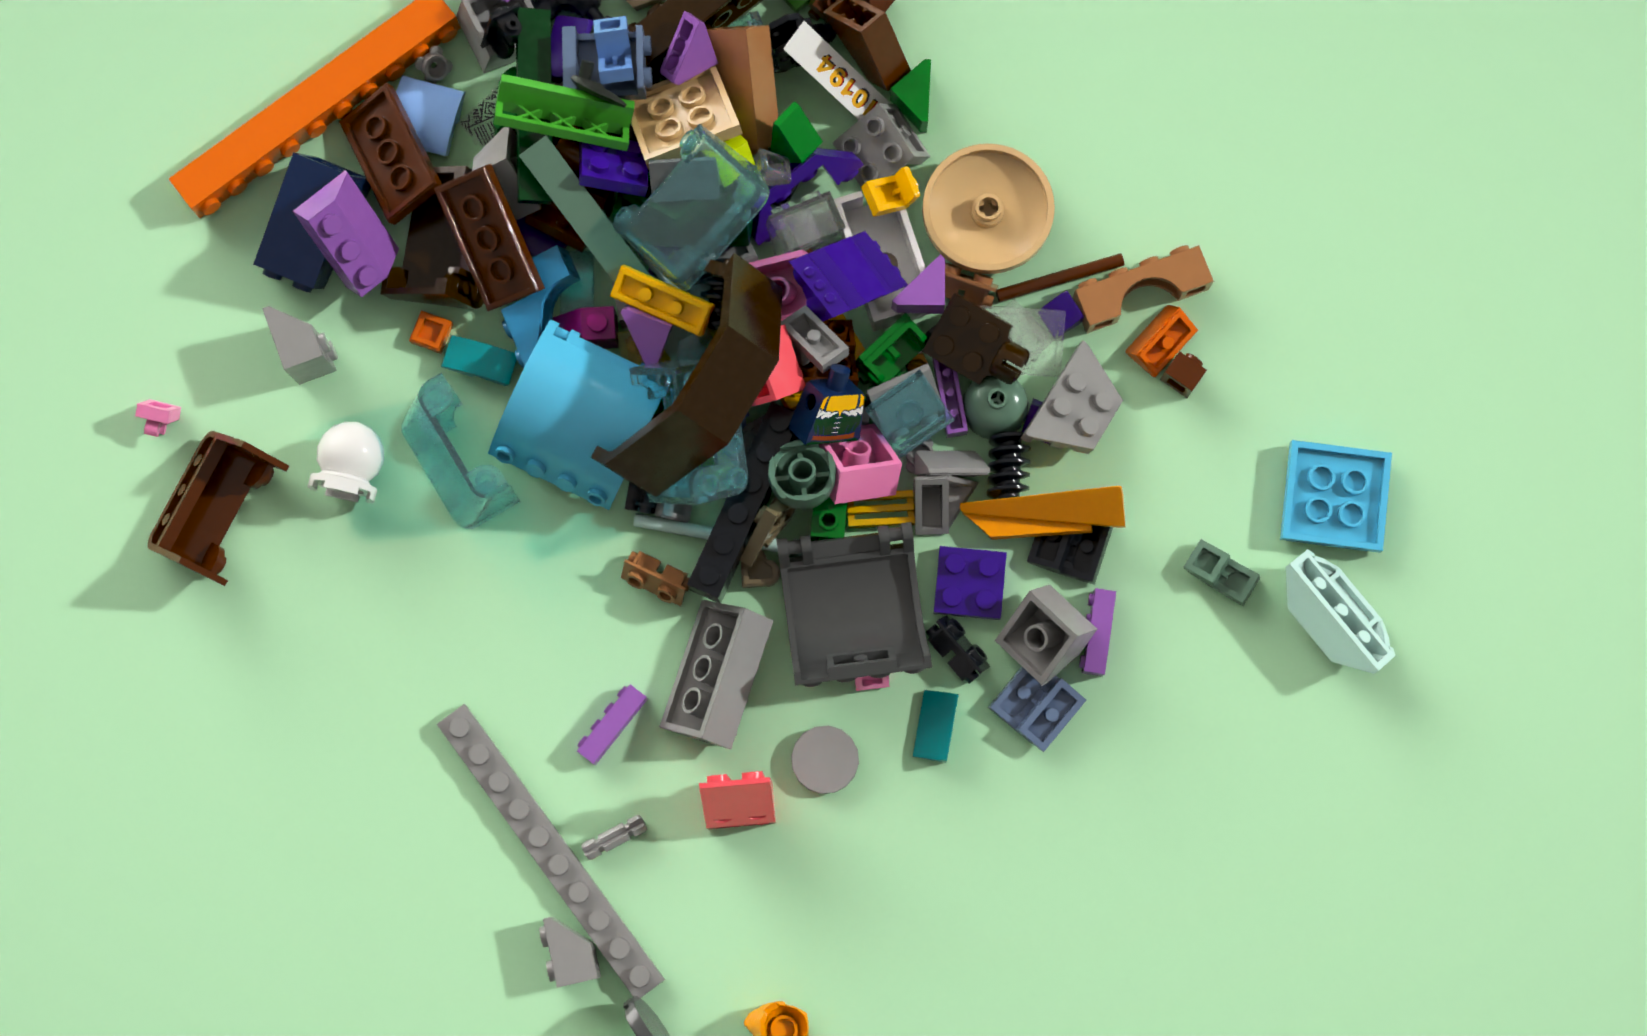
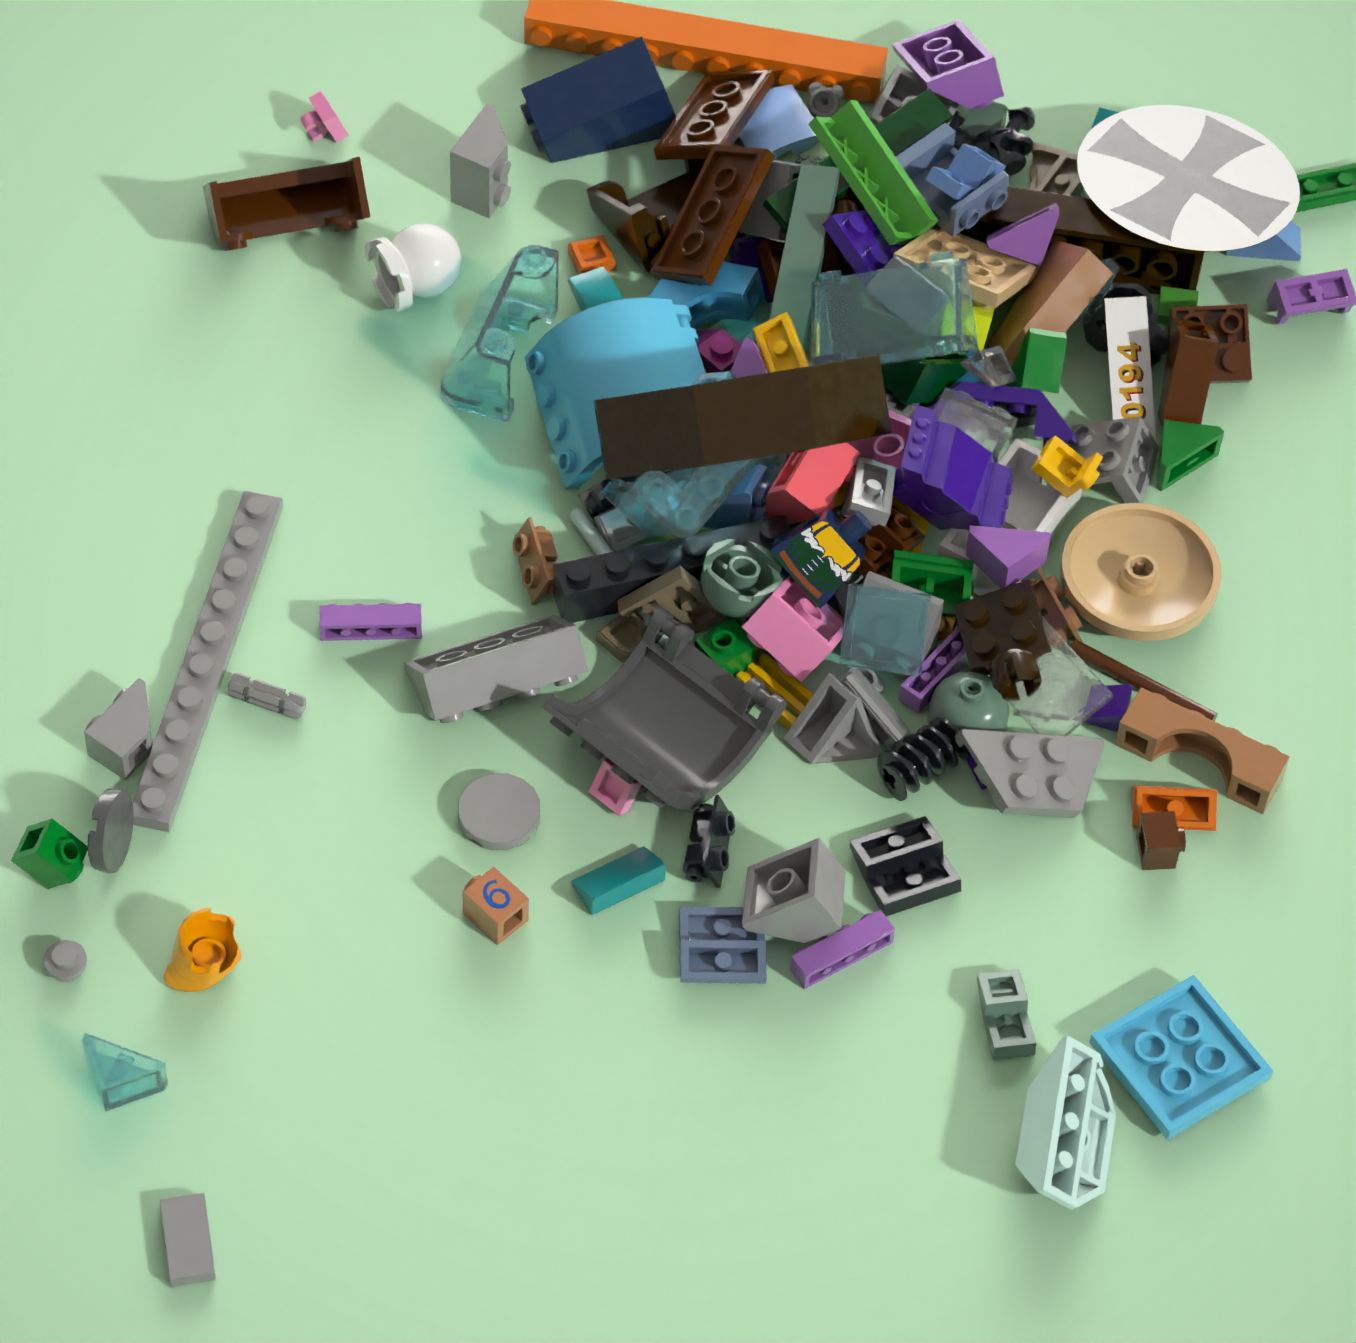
camera: 45 degrees right, 25 degrees down
(349, 234) = (615, 123): medium lavender slope -> none
(502, 31) = (898, 90): black hinge -> none
(593, 87) = (914, 169): pearl dark grey bar -> none
(738, 802) = (392, 746): coral slope -> none
(895, 822) = (495, 905): none -> nougat brick
(970, 583) = (782, 810): dark purple plate -> none
(1048, 513) = (912, 812): light orange wedge -> none

